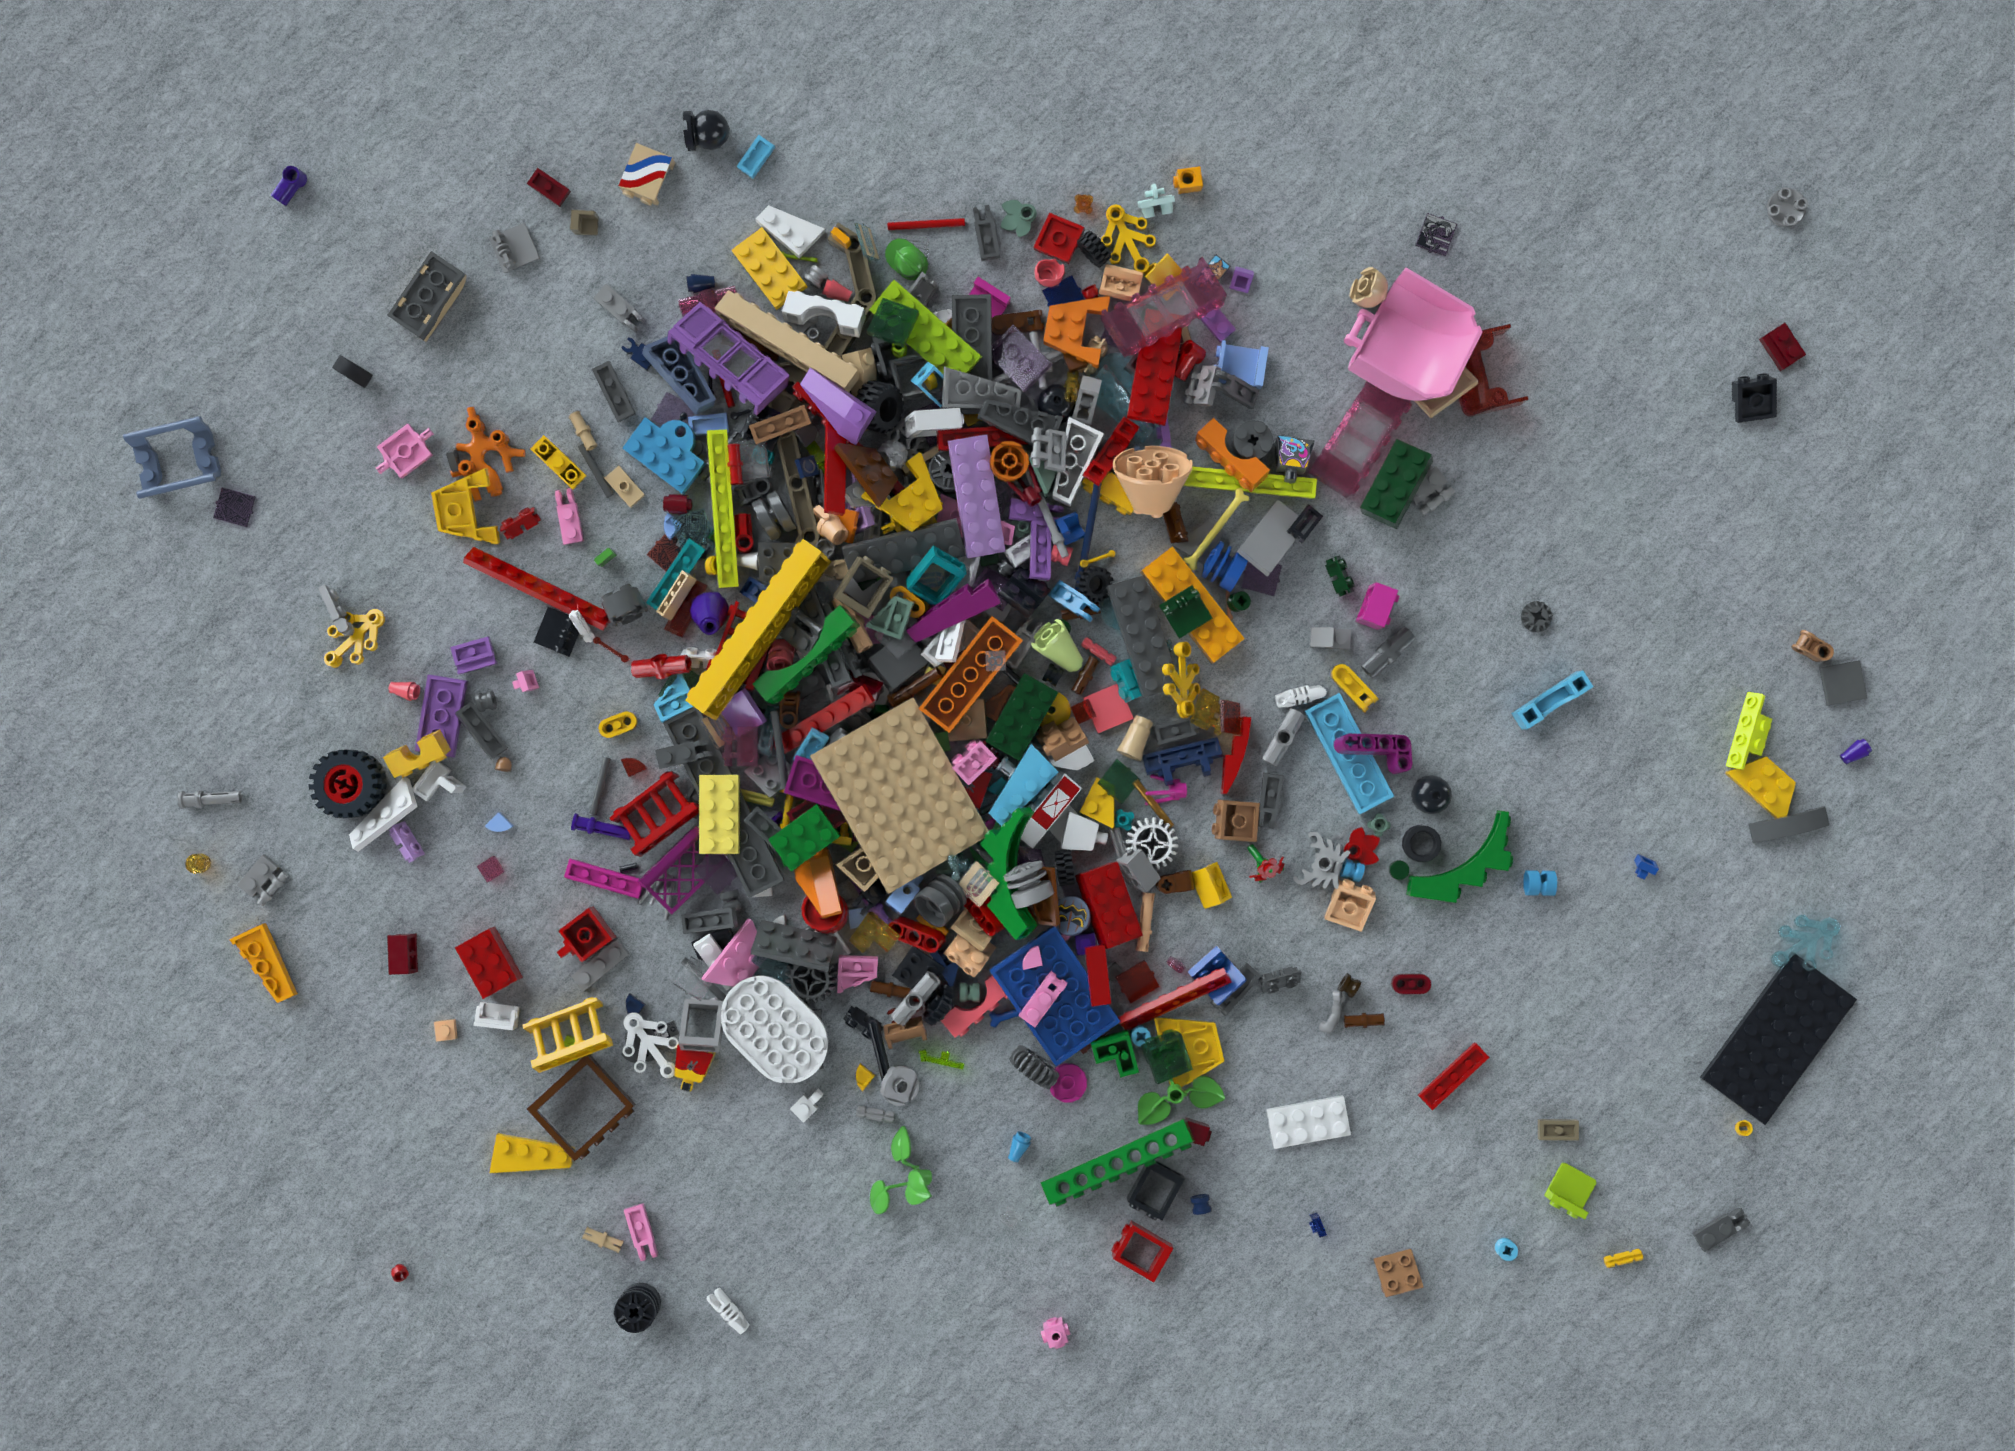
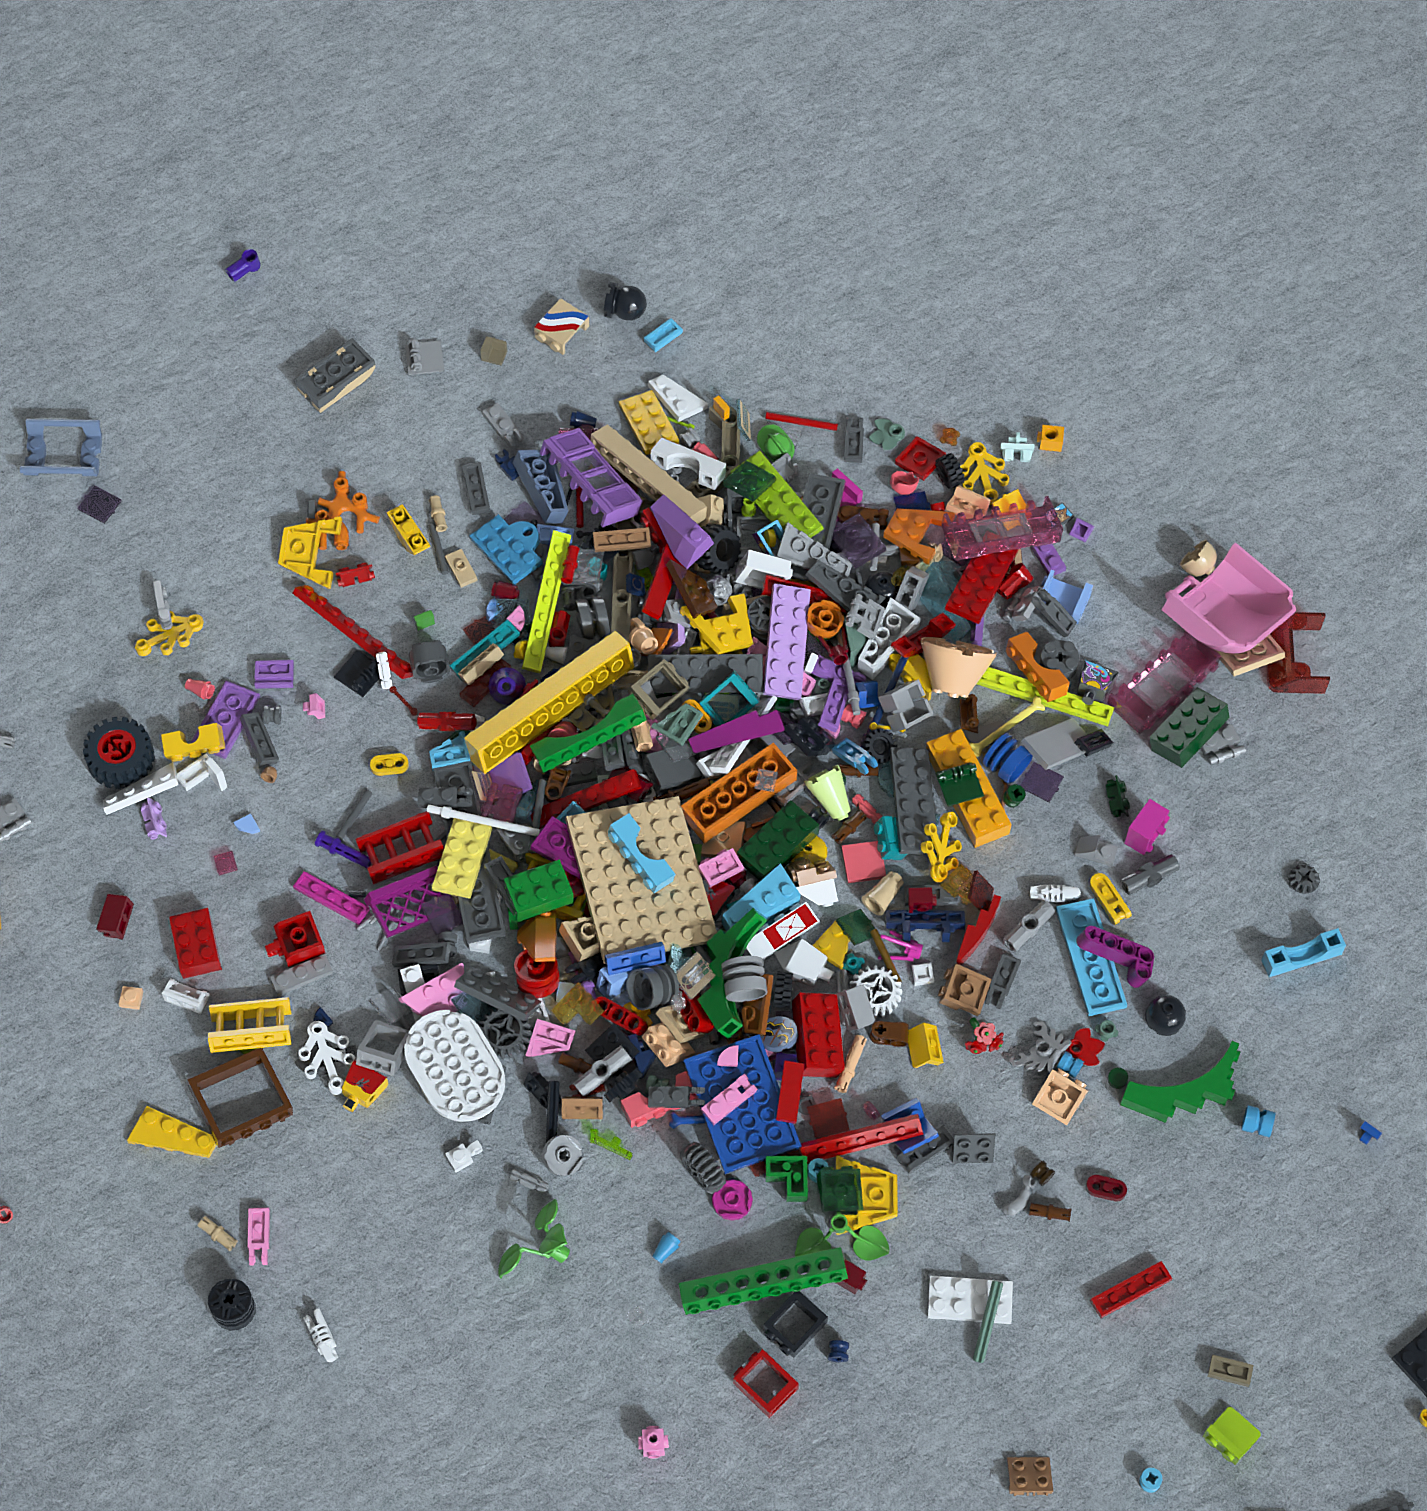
camera: 20 degrees right, 25 degrees down
(352, 371) = (247, 417): black tyre -> none
(404, 451) = (270, 493): bright pink plate -> none
(548, 187) = (471, 318): dark red plate -> none
(569, 518) = (401, 582): bright pink hinge -> none
(633, 766) = (391, 805): clear red tile -> none
(691, 770) = (447, 812): none -> white bar
(698, 533) = (517, 618): none -> bright pink tile
(863, 1076) = (528, 1143): yellow tile -> none
(874, 761) = (655, 873): none -> medium azure arch
(917, 883) = (635, 958): none -> blue plate
(968, 912) = (677, 1002): none -> clear plate
(990, 1008) = (674, 1097): none -> dark grey hinge
(1006, 509) = (811, 663): none -> white tile
(1083, 711) = (839, 857): clear red tile -> none
(1111, 535) = (900, 707): none -> light grey piece
(1175, 741) = (921, 899): none -> dark red brick
(1192, 811) = (922, 974): none -> white tile
(1316, 1225) = (954, 1403): clear blue plate -> none
(1330, 1143) = (988, 1321): none -> sand green axle
(1406, 840) = (1150, 1043): black tyre -> none
(1436, 234) = (1273, 534): piece -> none

